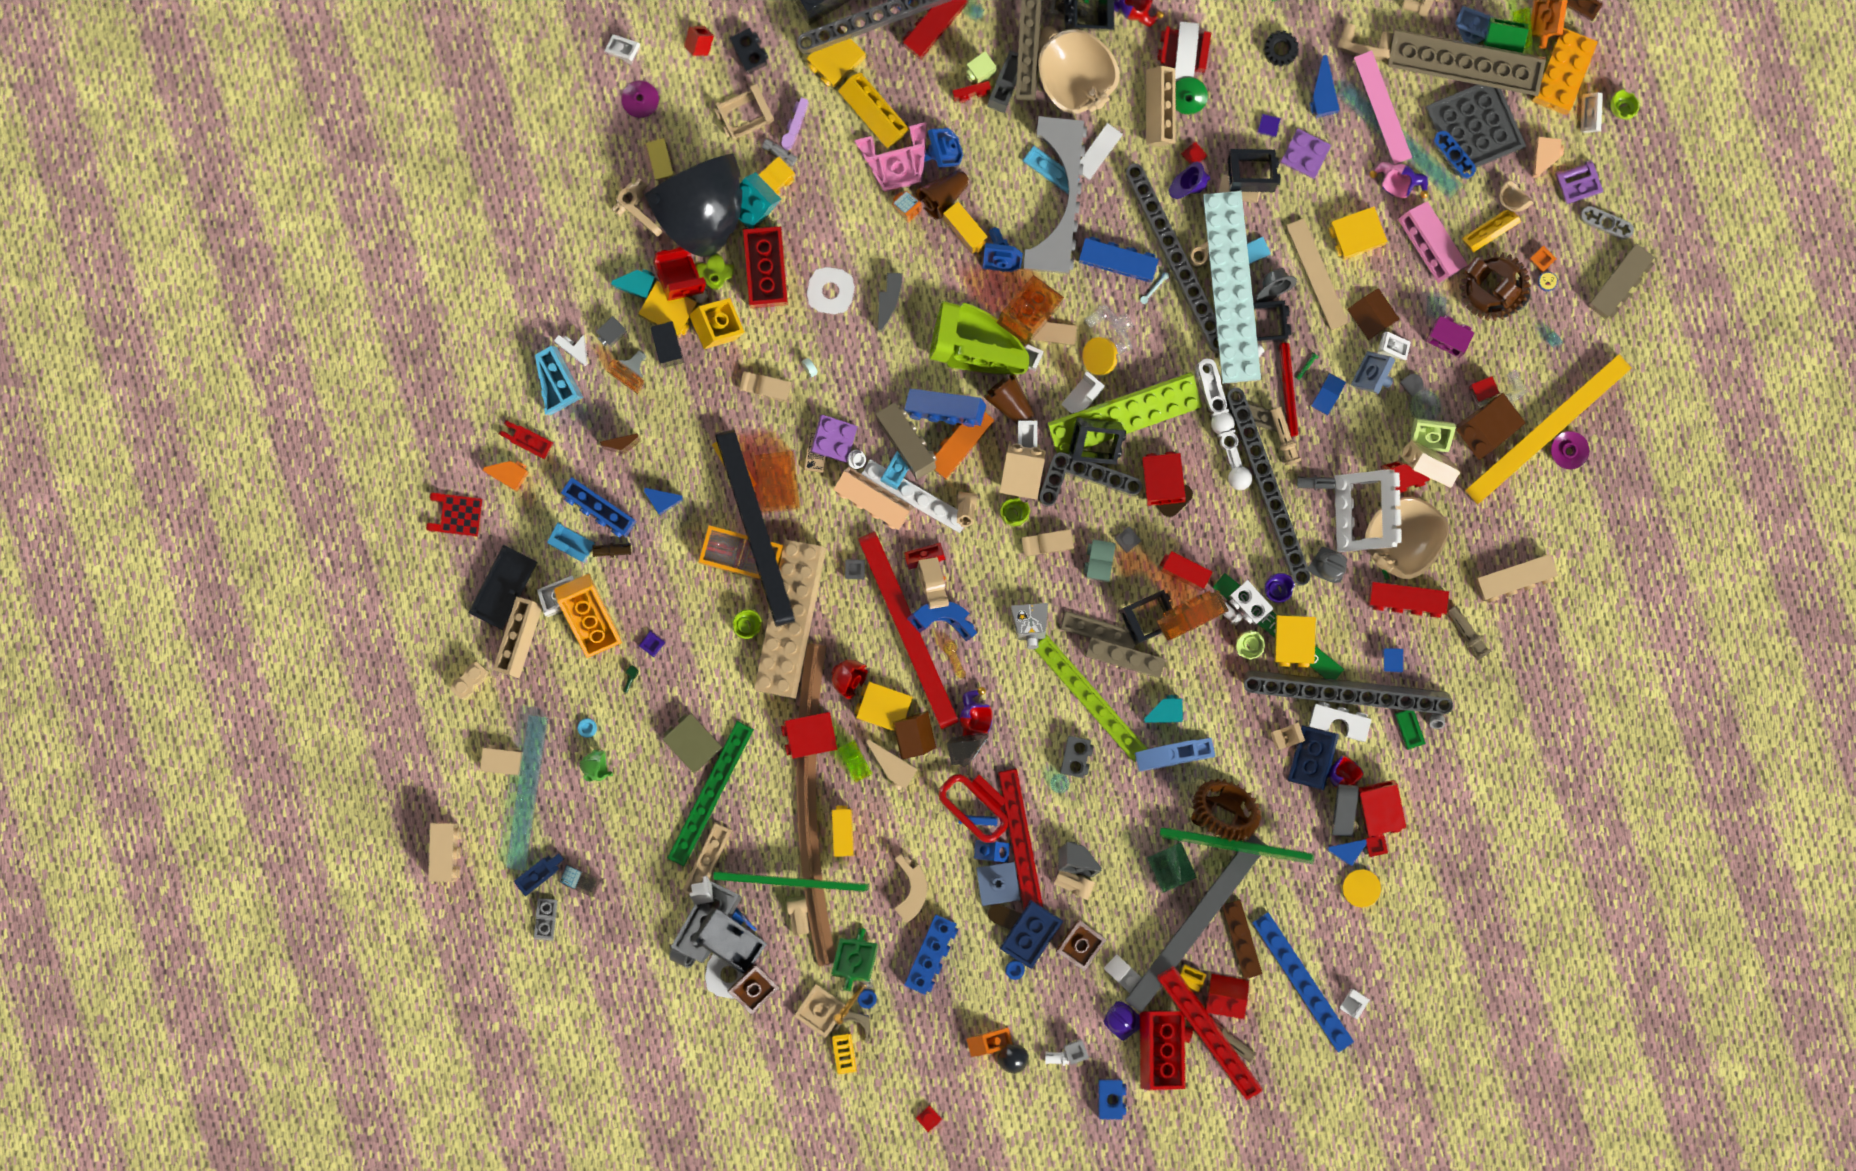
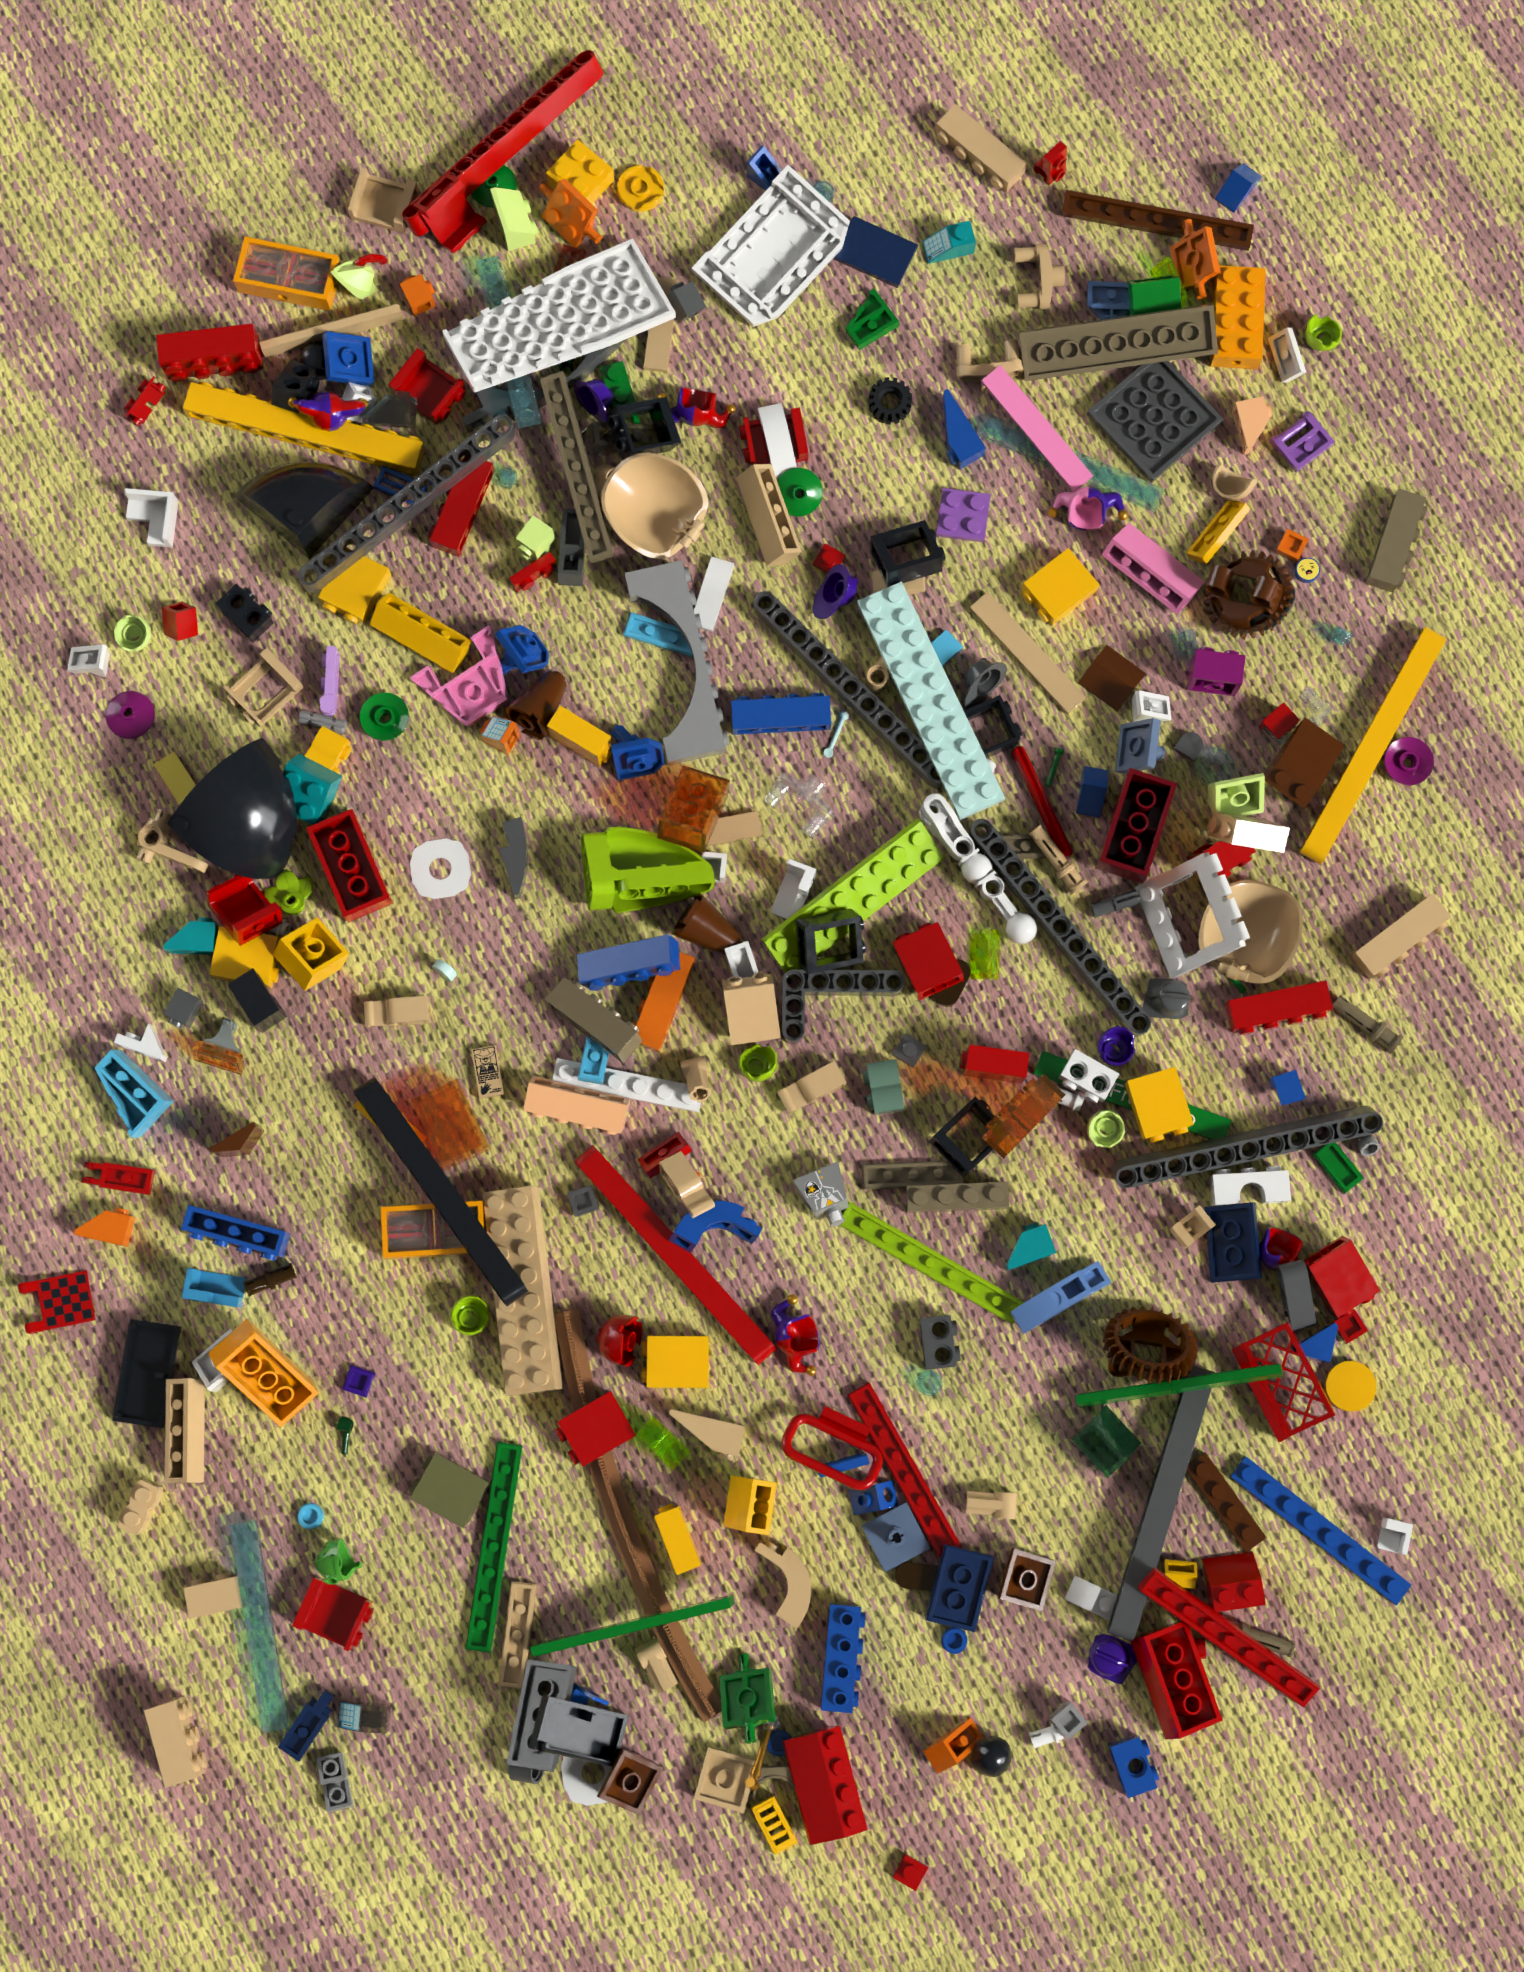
camera: 20 degrees left, 5 degrees down
(582, 802) = (334, 1613): none -> red panel
(661, 34) = (130, 628): none -> yellowish green hair
(662, 500) = (314, 1196): blue slope -> none
(702, 892) = (523, 1678): white panel -> none
(824, 154) = (380, 705): none -> green dish
(833, 438) = (503, 1047): medium lavender plate -> none
(856, 459) = (540, 1063): white plate -> none
(889, 1037) = (824, 1785): none -> red slope
(902, 825) = (750, 1505): none -> yellow brick
(914, 735) = (727, 1384): reddish brown slope -> none
(950, 648) = (735, 1259): clear yellow piece -> none
(964, 748) = (796, 1378): clear smoke slope -> none
(1077, 860) = (985, 1473): dark grey slope -> none
(1099, 356) = (798, 837): yellow tile -> none
(1207, 488) = (985, 954): none -> clear neon green slope
(1269, 125) = (907, 496): dark purple tile -> none
(1298, 875) = (1264, 1393): none -> red fence
(1349, 431) = (1135, 825): none -> dark red brick
(1450, 140) = (1143, 466): blue beam -> none
(1595, 212) = (1359, 471): light grey beam -> none

